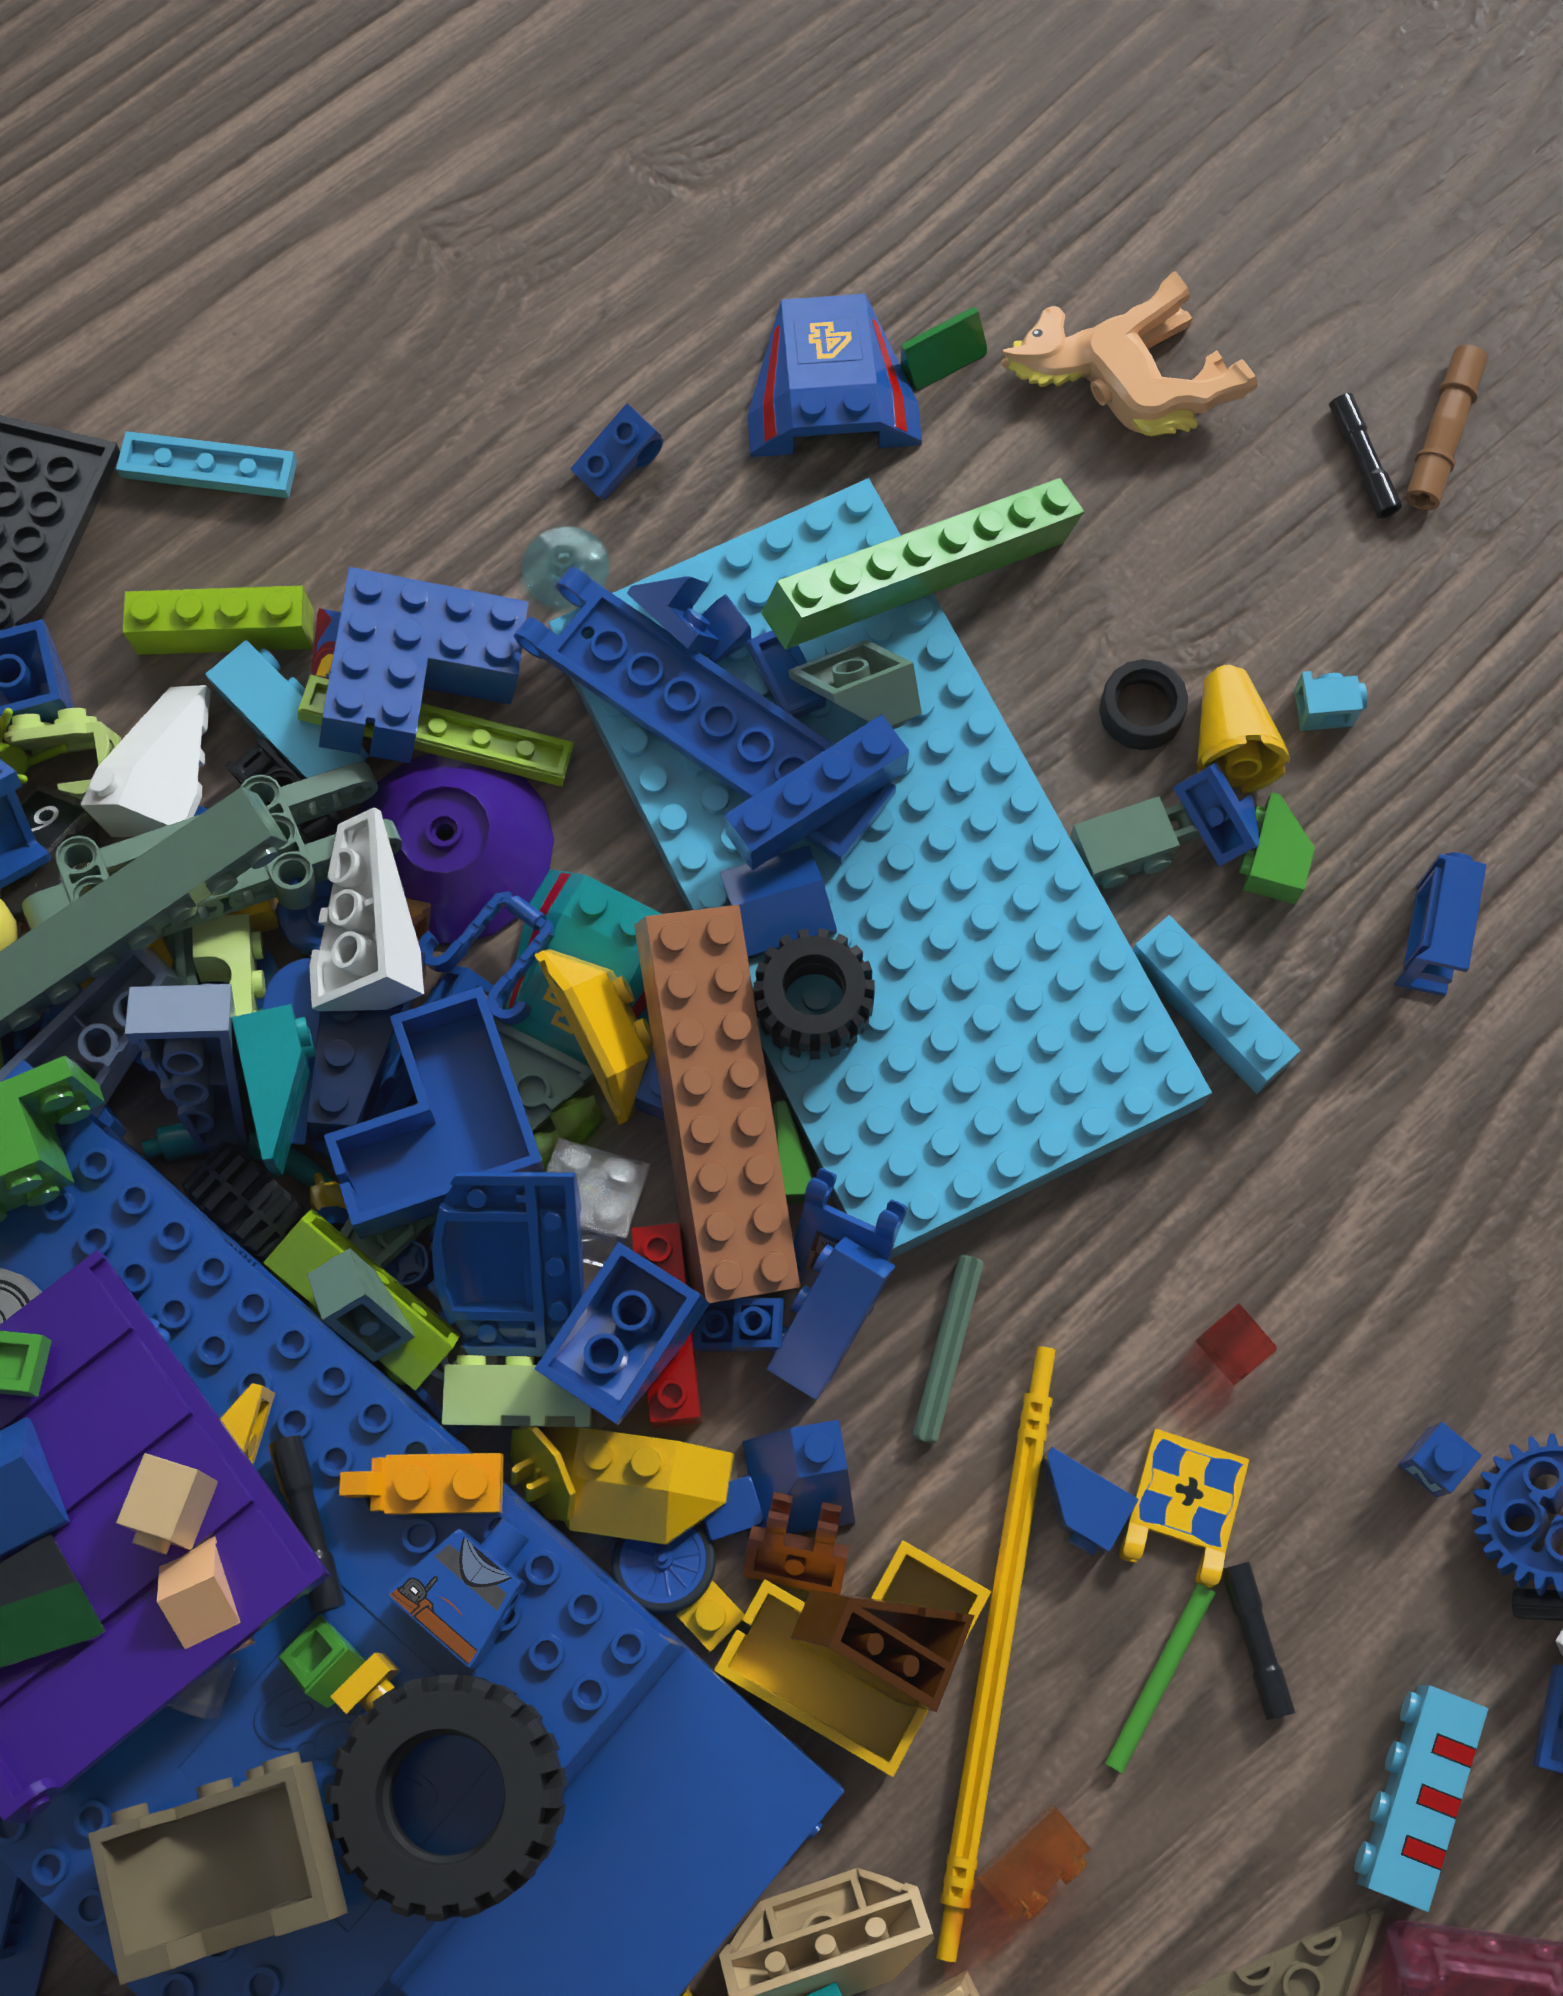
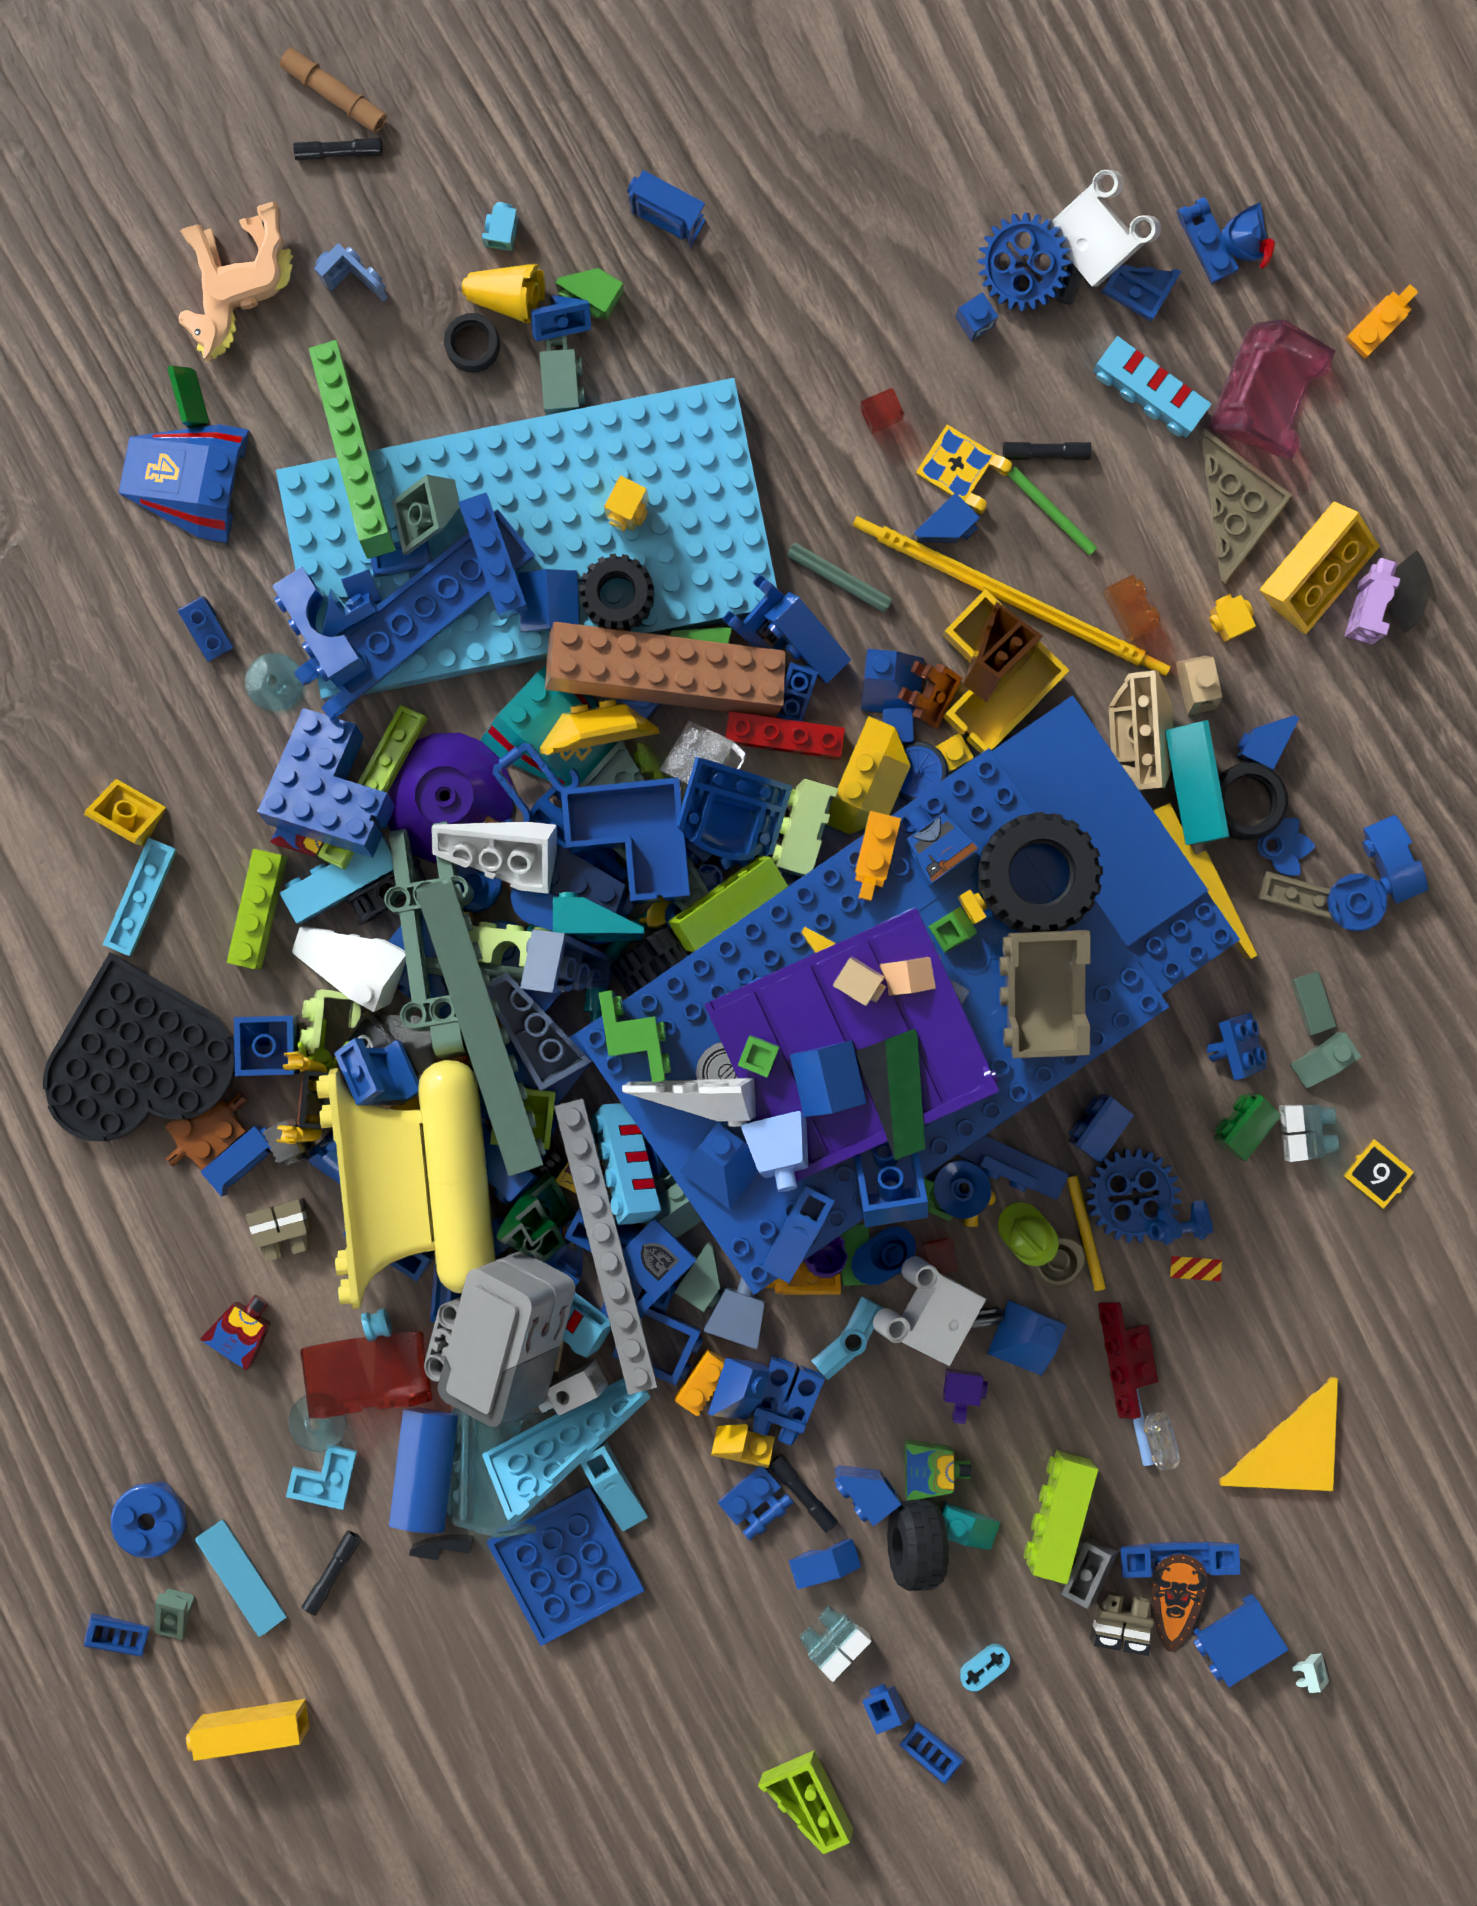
camera: 80 degrees left, 15 degrees up
(297, 1489) = (857, 923): black piece -> none
(321, 414) = (126, 812): none -> yellow slope
(359, 1305) = (735, 901): sand green slope -> none
(541, 1473) = (847, 825): yellow piece -> none
(600, 607) = (302, 600): none -> arch
(622, 1333) = (792, 756): blue slope -> none
(954, 969) = (627, 505): none -> yellow brick
(1194, 490) = (339, 262): none -> medium blue bracket
(1214, 1005) = (678, 359): medium azure brick -> none

